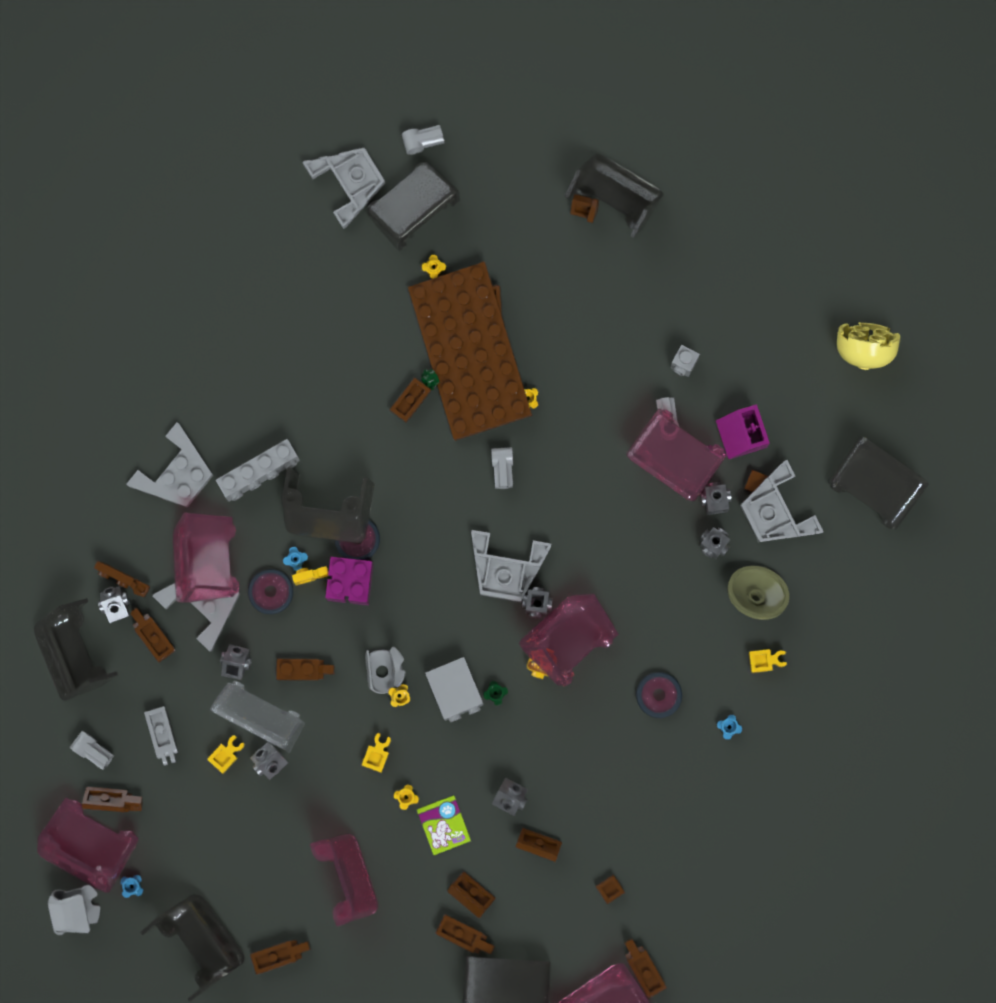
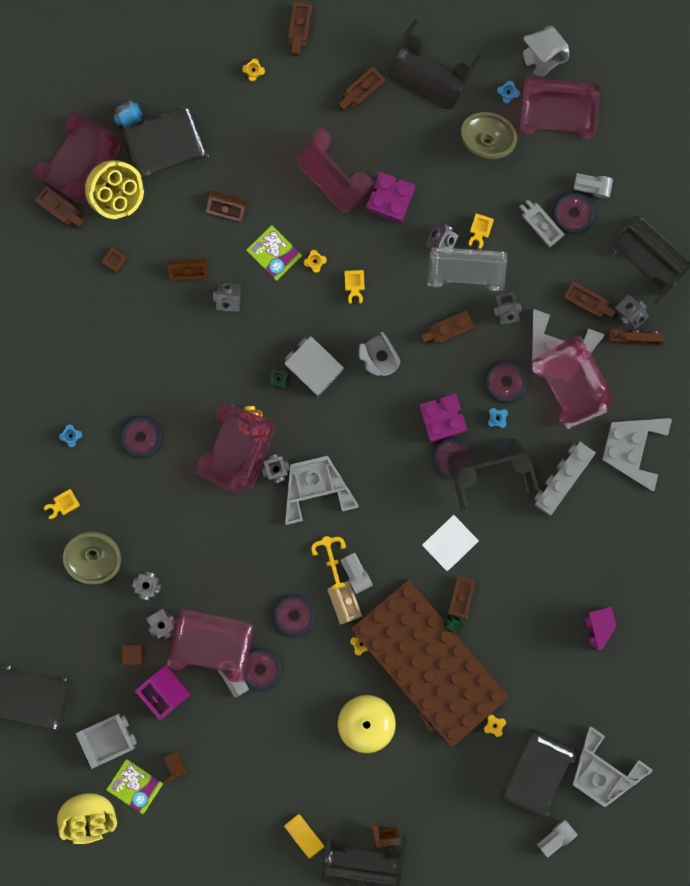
camera: 155 degrees right, 5 degrees up
(111, 800) = (558, 152): reddish brown hinge -> none
(137, 728) = (577, 201): none -> clear pink wheel
(165, 852) = (488, 135): none -> olive dish
(288, 313) = (601, 626): none -> magenta slope
(300, 825) = (390, 198): none -> magenta piece
(304, 575) = (484, 406): yellow plate -> none
(397, 458) = (450, 543): none -> white sticker
(403, 699) = (354, 338): yellow plate -> none
(463, 935) = (217, 170): reddish brown hinge -> none
(518, 511) = (327, 541): none -> yellow piece
(526, 445) = (345, 603): none -> tan slope
(558, 332) = (363, 709): none -> light yellow cylinder
(579, 960) = (123, 189): none -> light yellow cylinder
(581, 466) = (298, 627): none -> clear pink wheel
(627, 407) = (272, 673): none -> clear pink wheel
(662, 241) = (304, 836): none -> yellow slope
(684, 361) = (239, 734): light grey brick -> none
(759, 359) = (175, 767): none -> reddish brown tile
(769, 514) = (111, 632): light grey wing -> none
(807, 357) = (134, 786): none -> sticker
(817, 412) = (106, 740): none -> light grey panel

